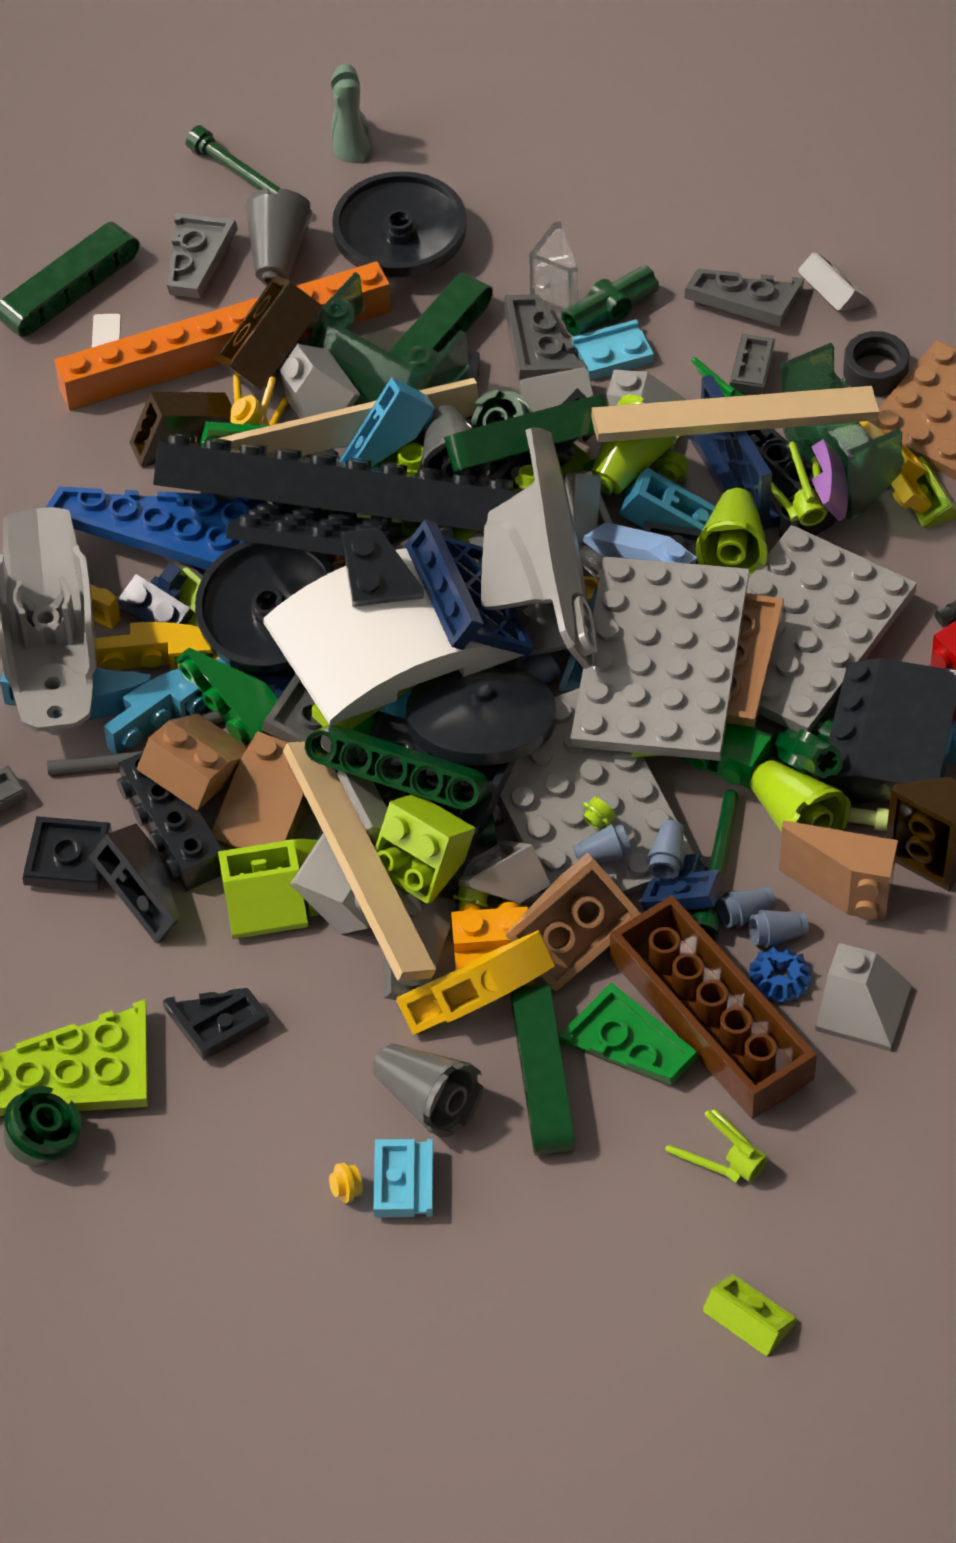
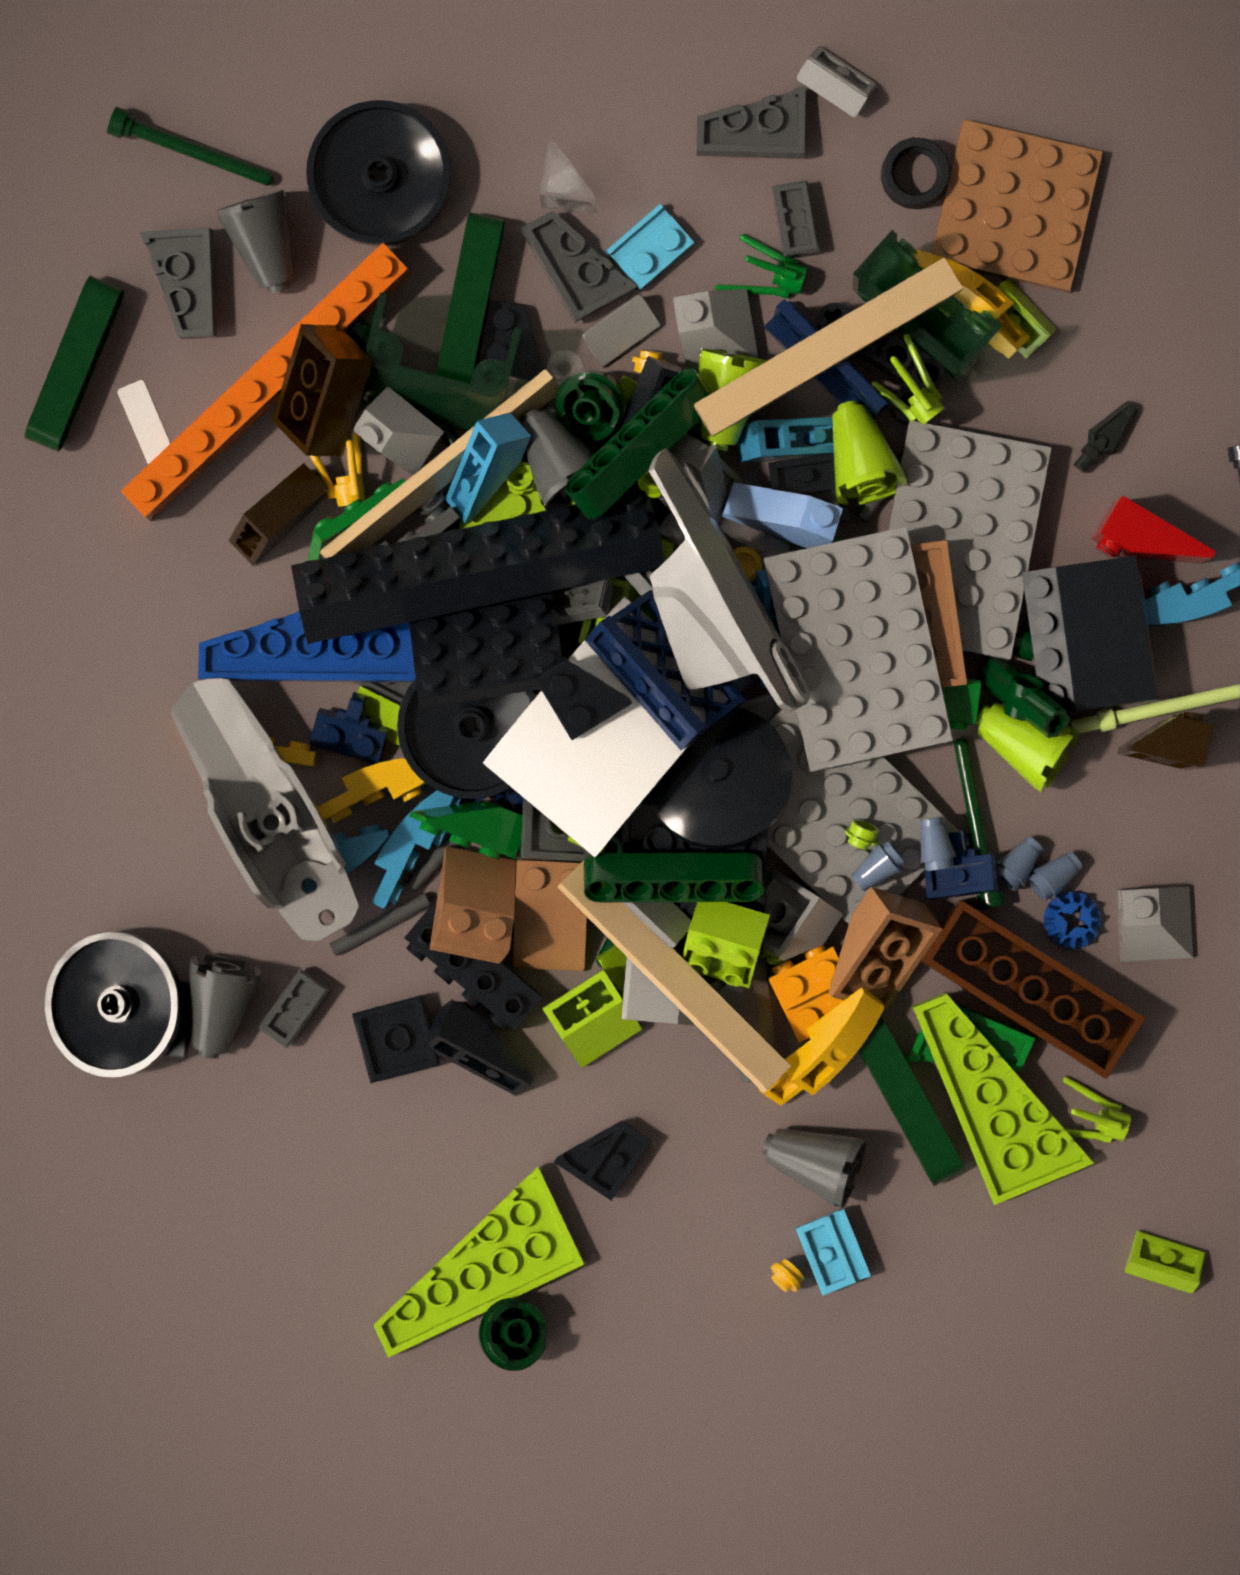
camera: 25 degrees left, 35 degrees up
(246, 411) = (339, 488): yellow plate -> none
(348, 122) = (263, 45): sand green piece -> none
(610, 300) = (626, 190): dark green piece -> none
(632, 1114) = (1004, 1122): none -> lime wing
(832, 482) = (943, 382): medium lavender slope -> none
(841, 867) = (1109, 807): medium nougat slope -> none

